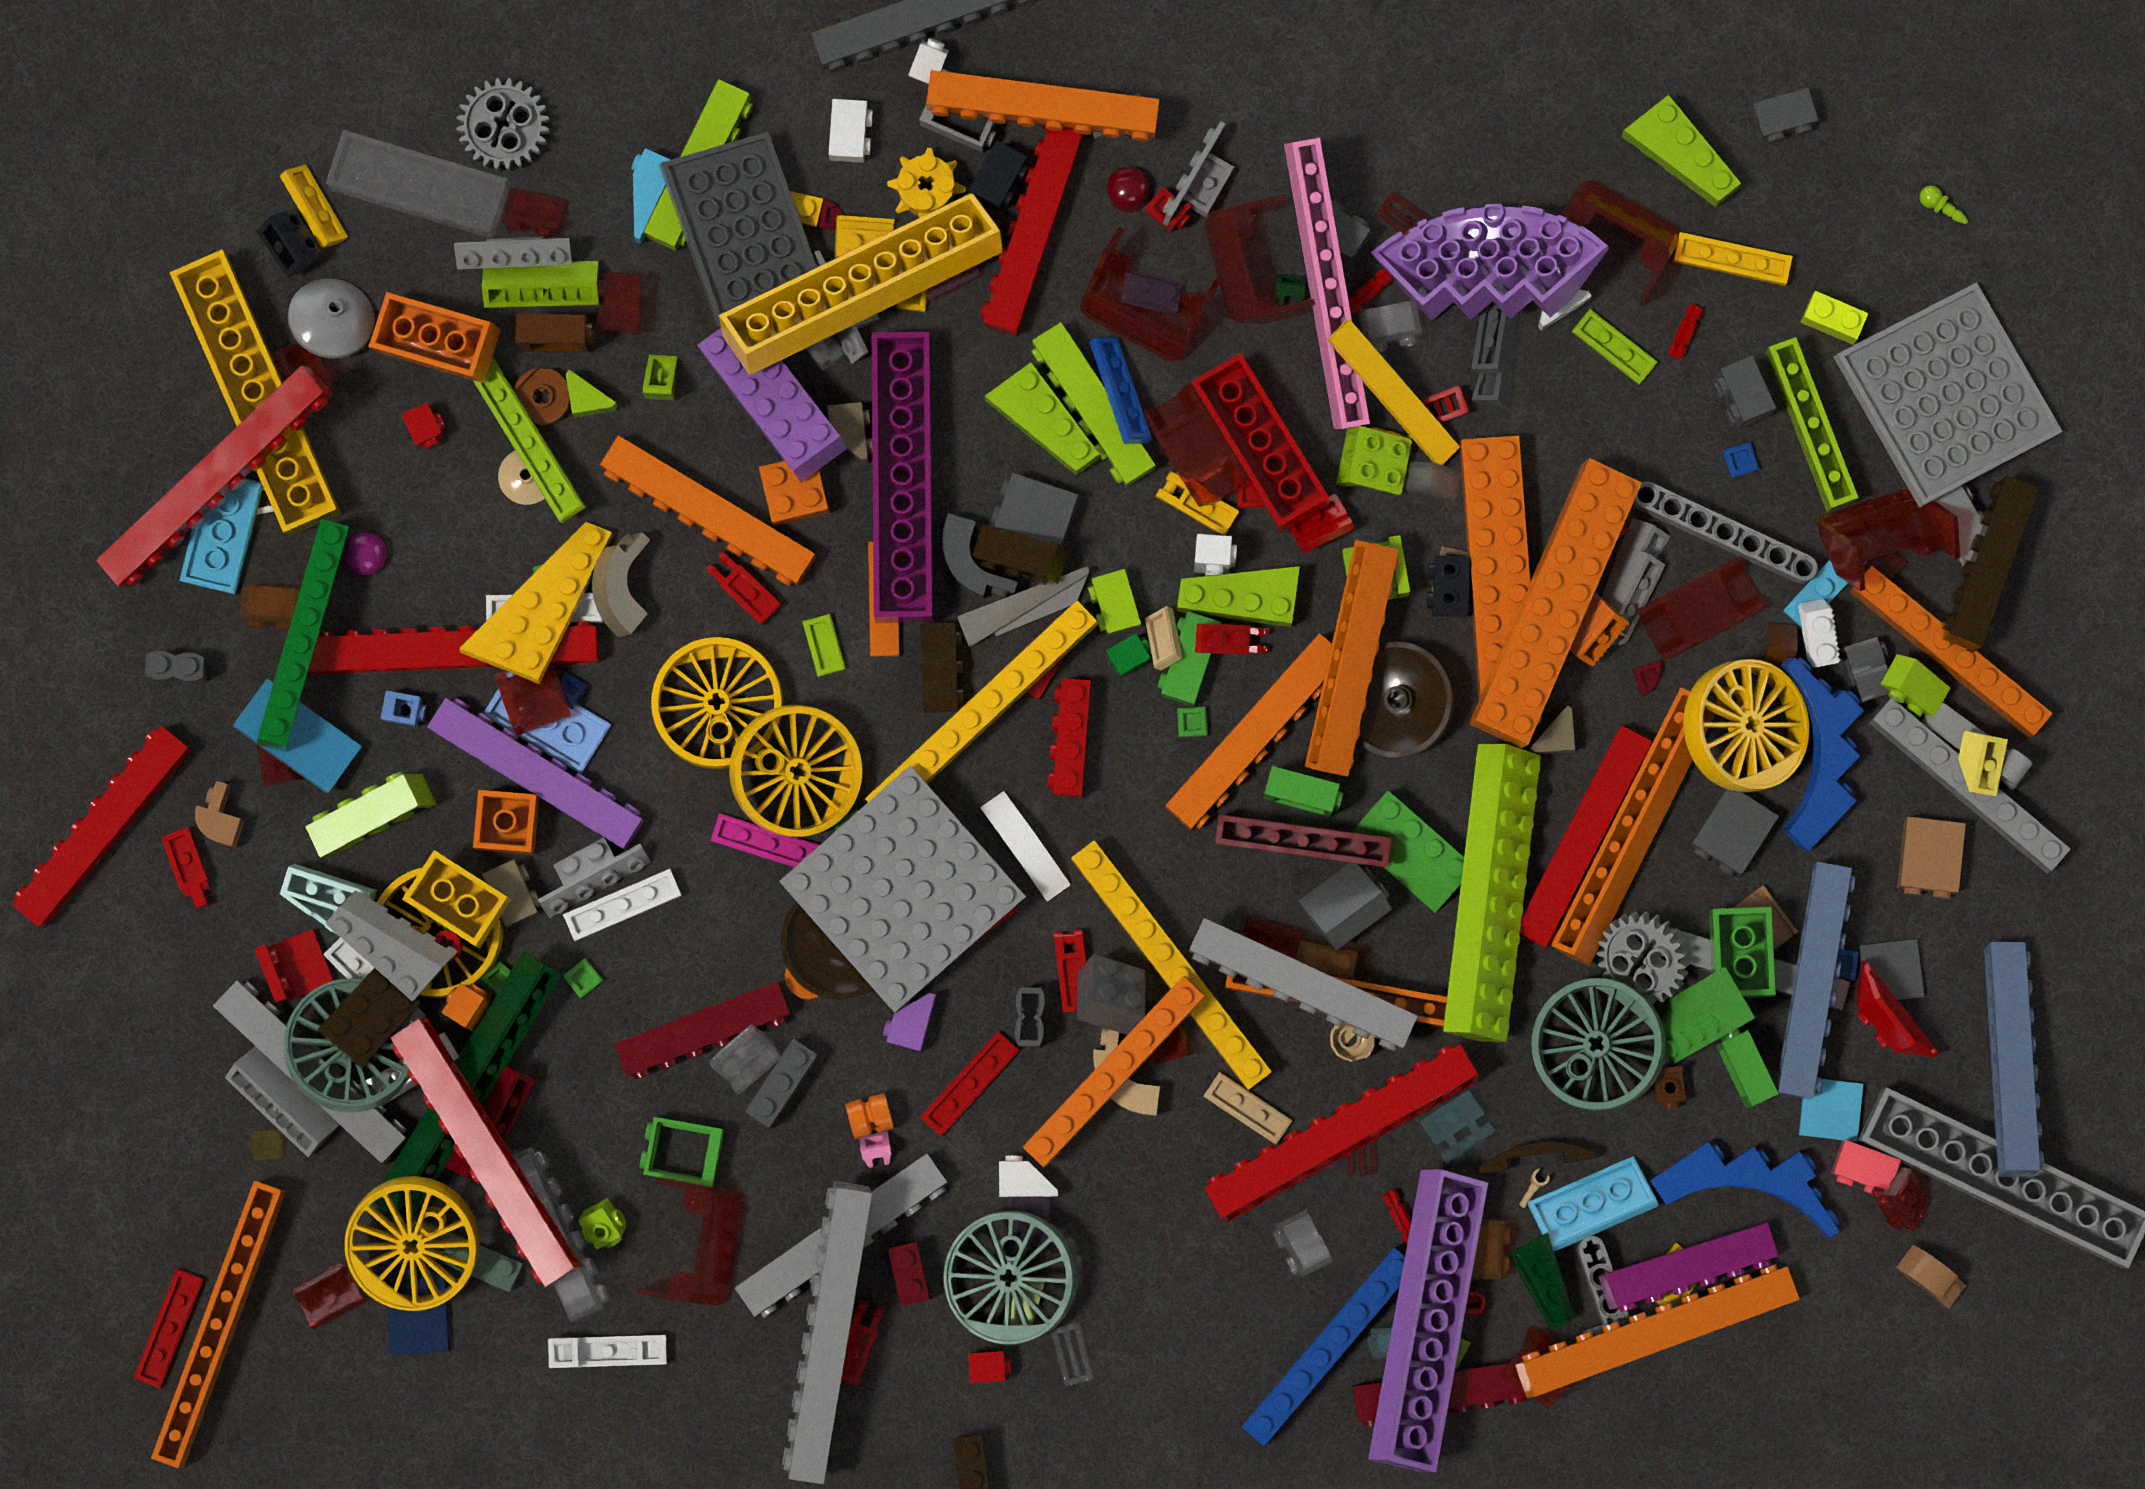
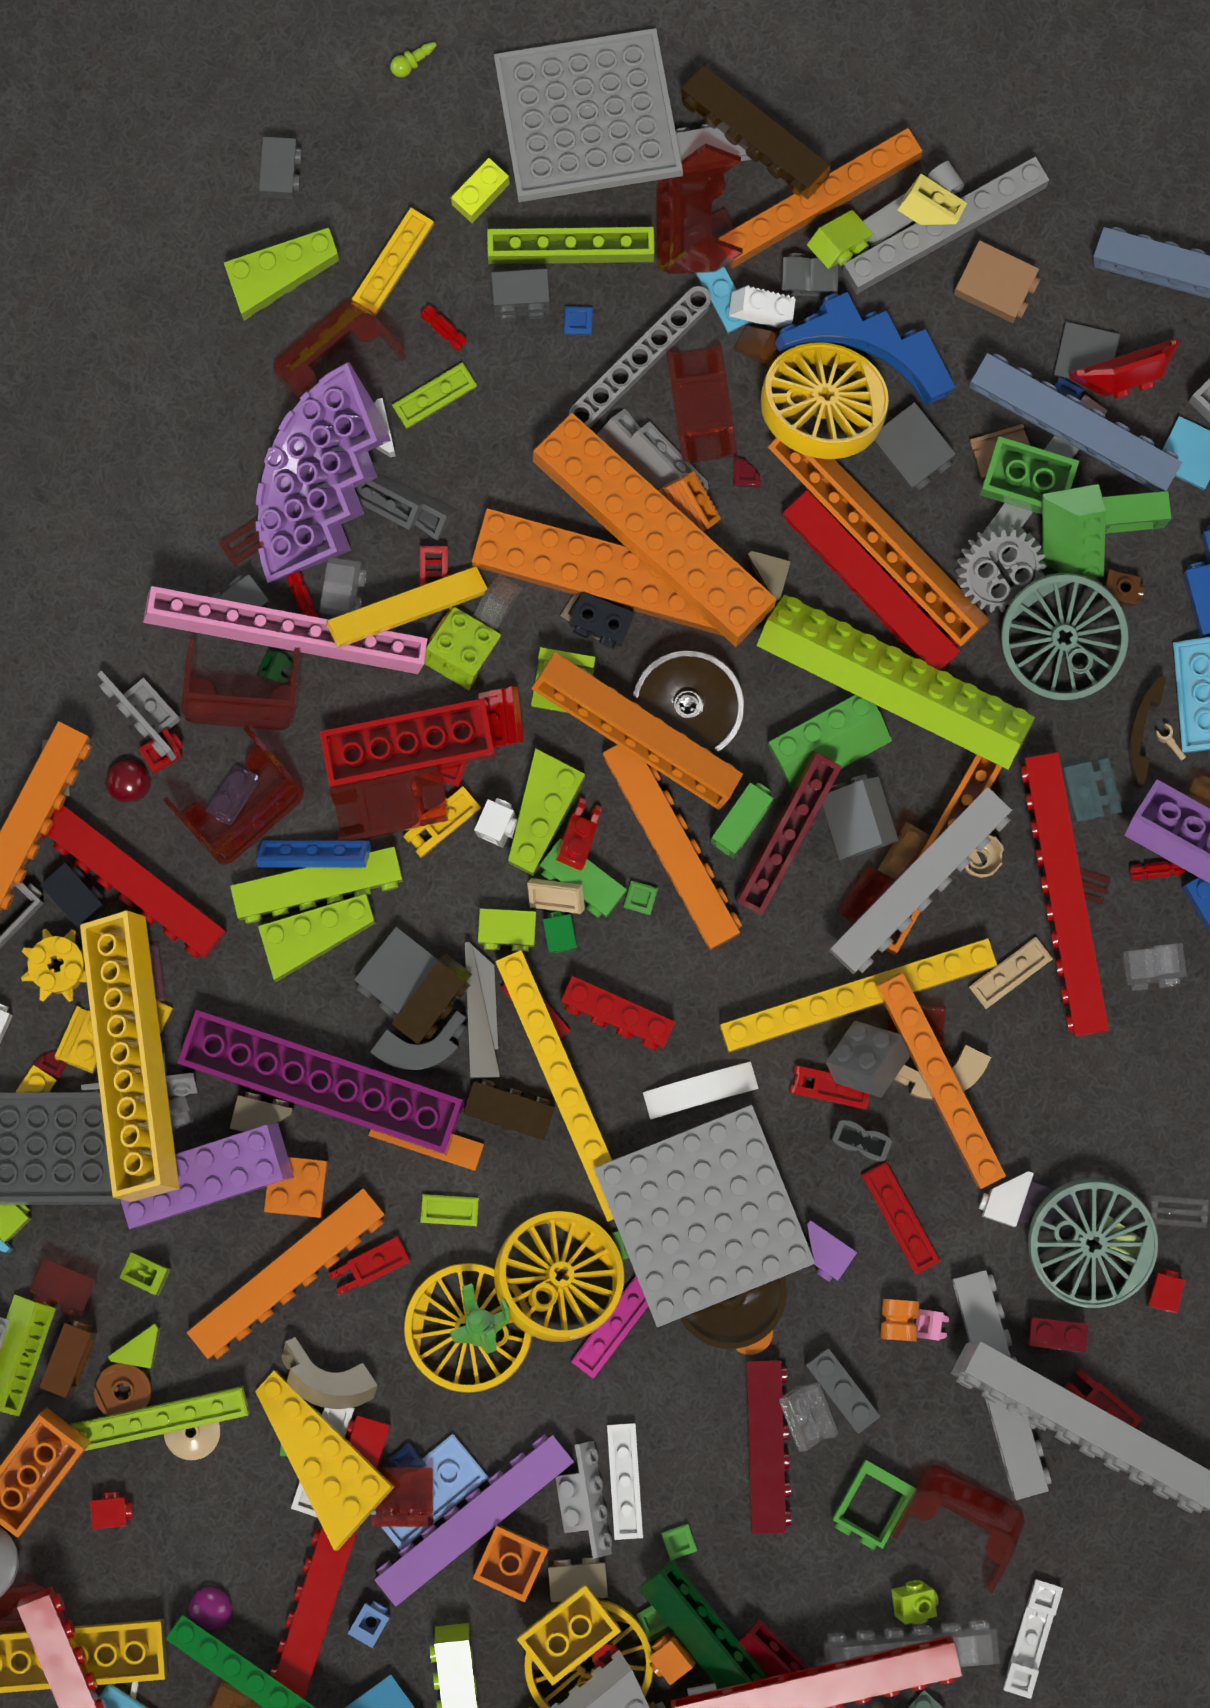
camera: 75 degrees left, 0 degrees up
(721, 710) = (480, 1324): none -> bright green piece

